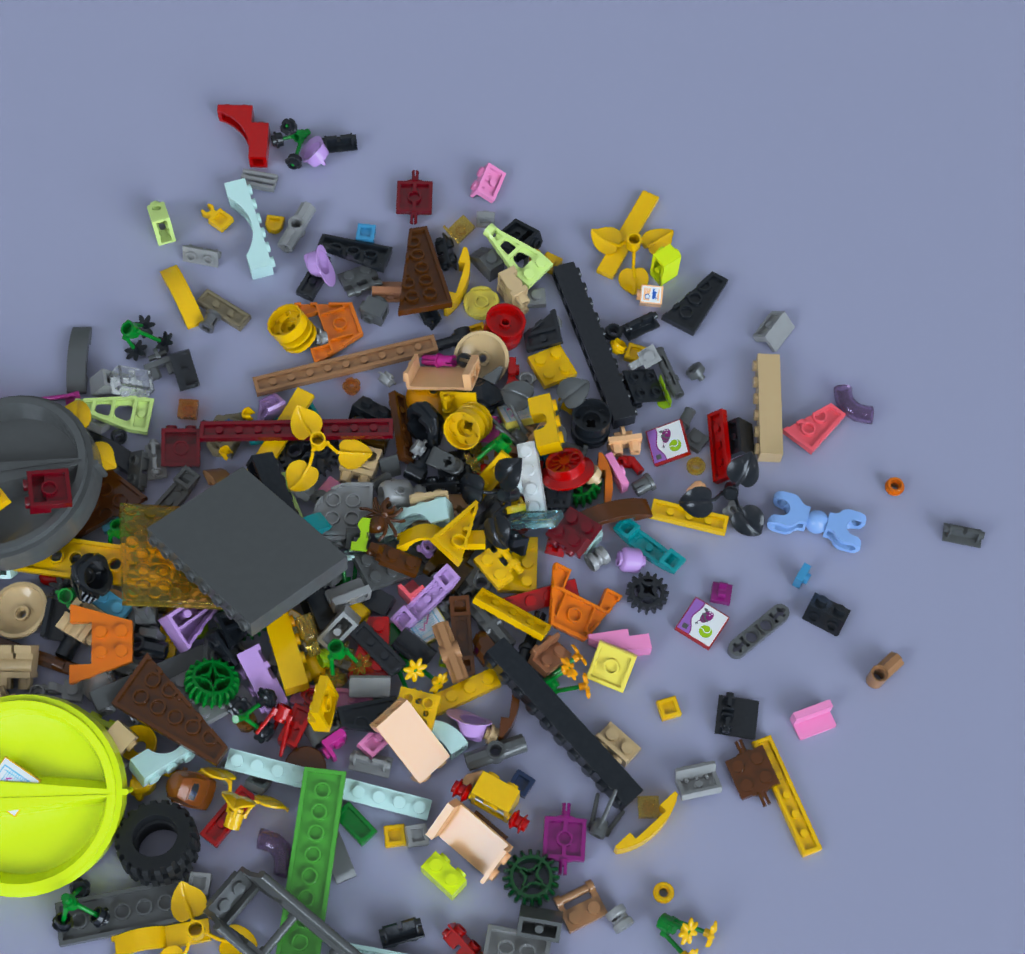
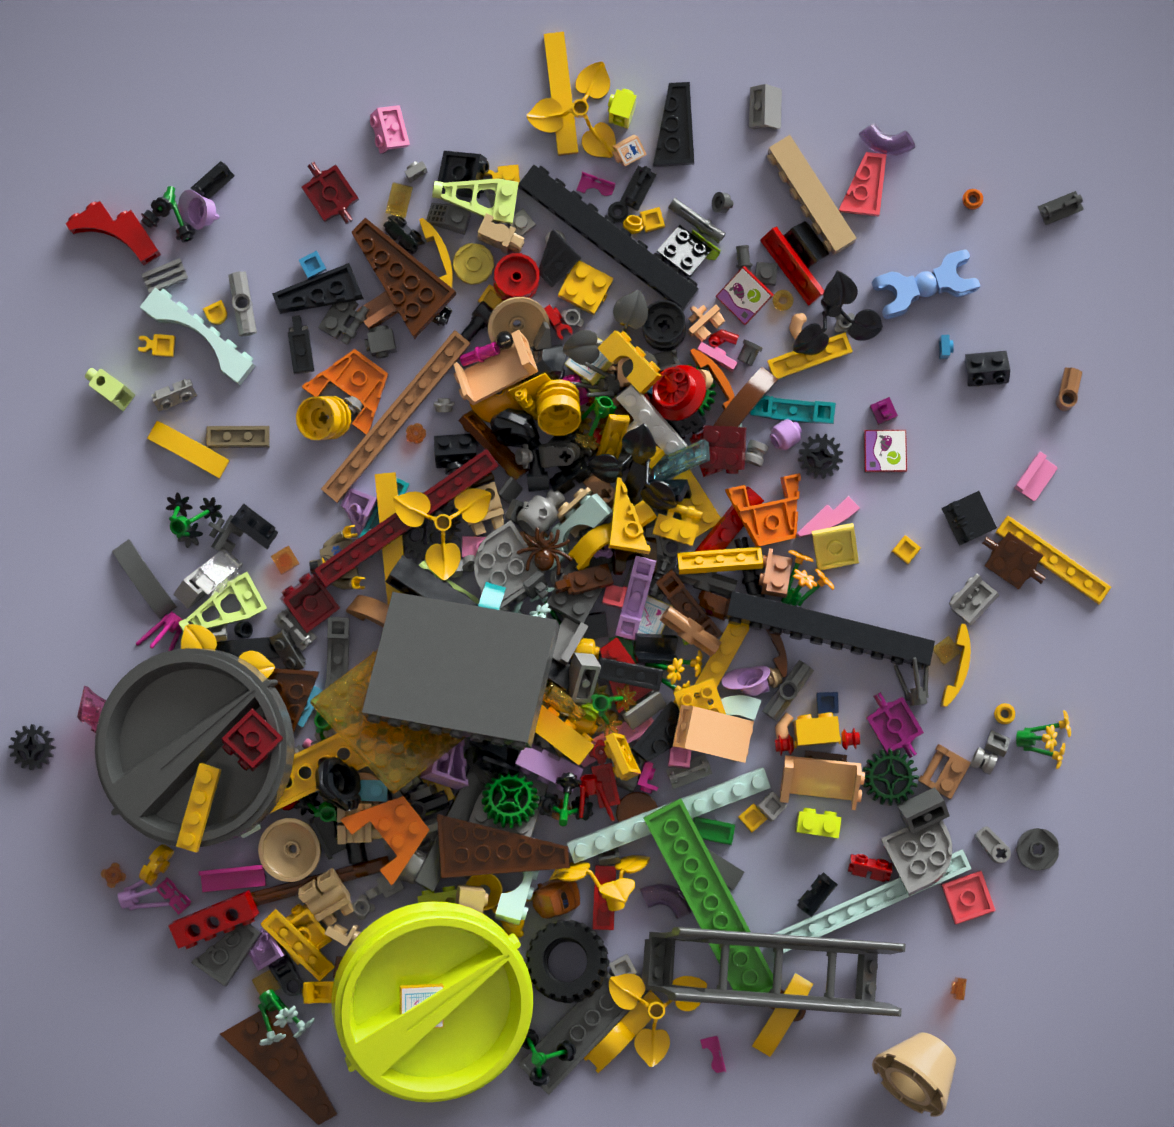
camera: 30 degrees left, 20 degrees up
(210, 321) = (236, 458): flat silver bush -> none
(320, 265) = (300, 333): lavender piece -> none
(361, 543) = (547, 588): lime piece -> none
(604, 302) = (587, 183): none -> dark pink piece
(618, 744) = (884, 612): tan bracket -> none
(640, 912) = (997, 743): none -> dark grey plate
(647, 357) = (668, 220): light grey plate -> none
(756, 629) = (935, 424): dark grey beam -> none

